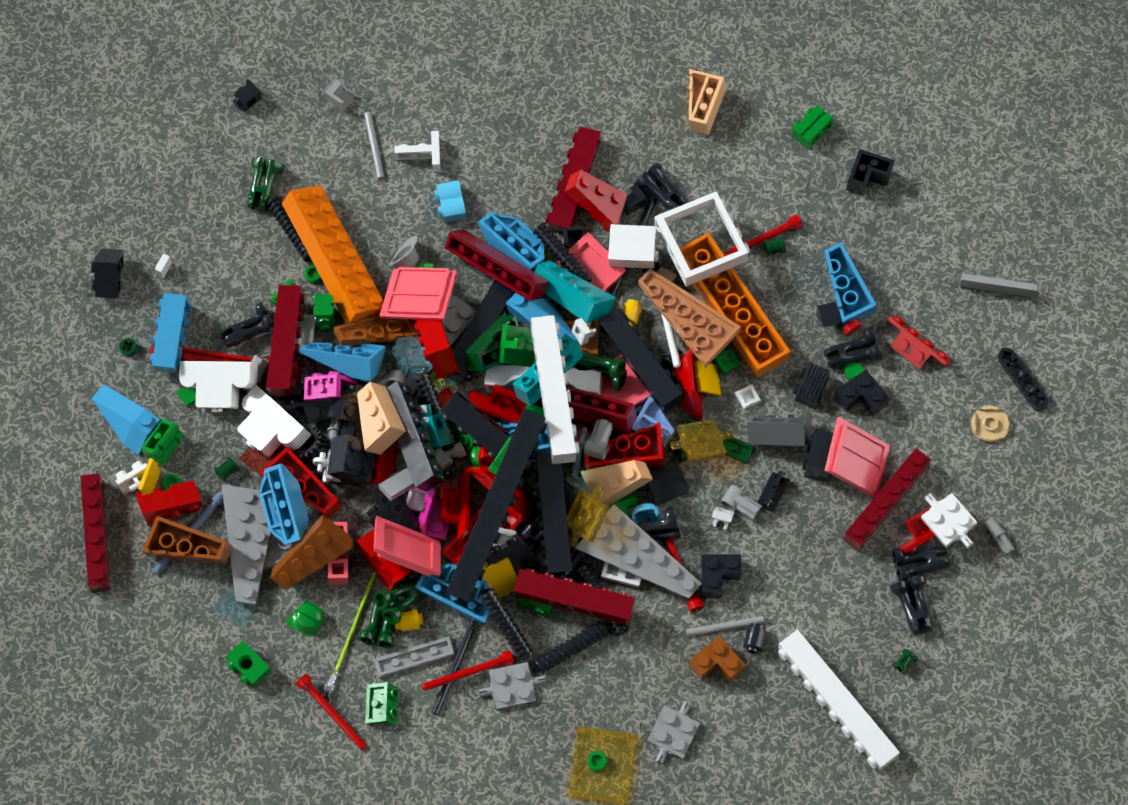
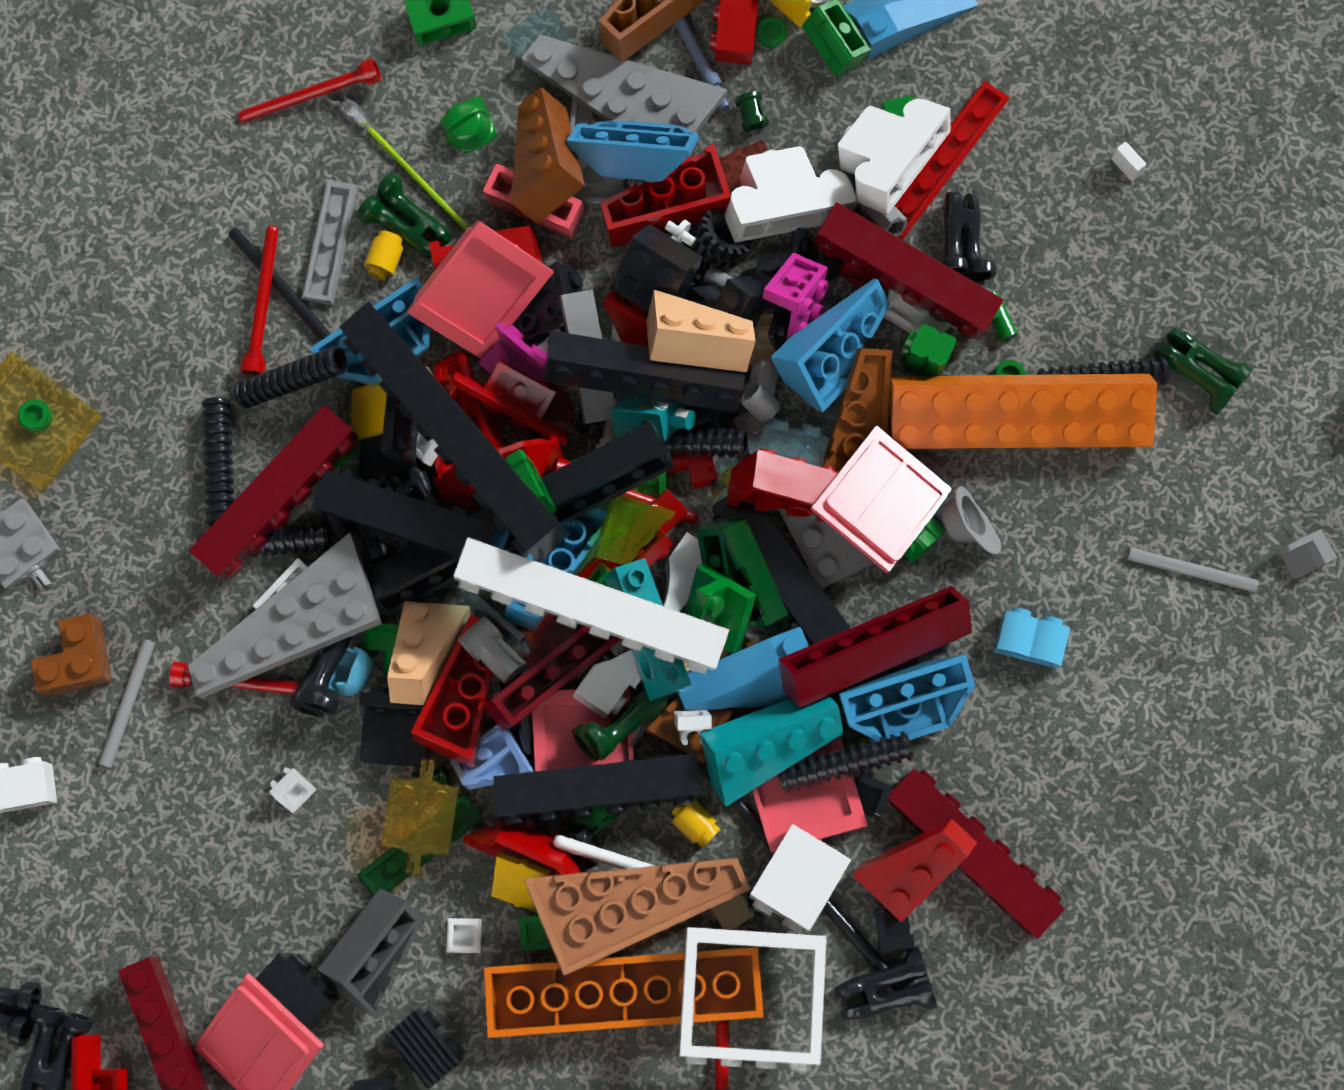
camera: 120 degrees right, 10 degrees up
(107, 273) = (1157, 73): black brick -> none
(122, 347) = (1025, 54): dark green bush -> none
(170, 332) = (1006, 118): dark azure wedge -> none
(381, 703) = (284, 164): bracket -> none
(394, 613) = (400, 233): dark green piece -> none
(421, 151) = (1143, 638): white bracket -> none
(499, 409) = (627, 528): none -> clear neon green wing
(512, 685) = (211, 354): light grey plate -> none
(586, 515) = (379, 567): clear yellow plate -> none
(718, 568) = (212, 730): black brick -> none
(736, 500) = (296, 828): light grey piece -> none
(755, 638) = (79, 734): black brick -> none
(773, 491) = (290, 889): black hinge -> none

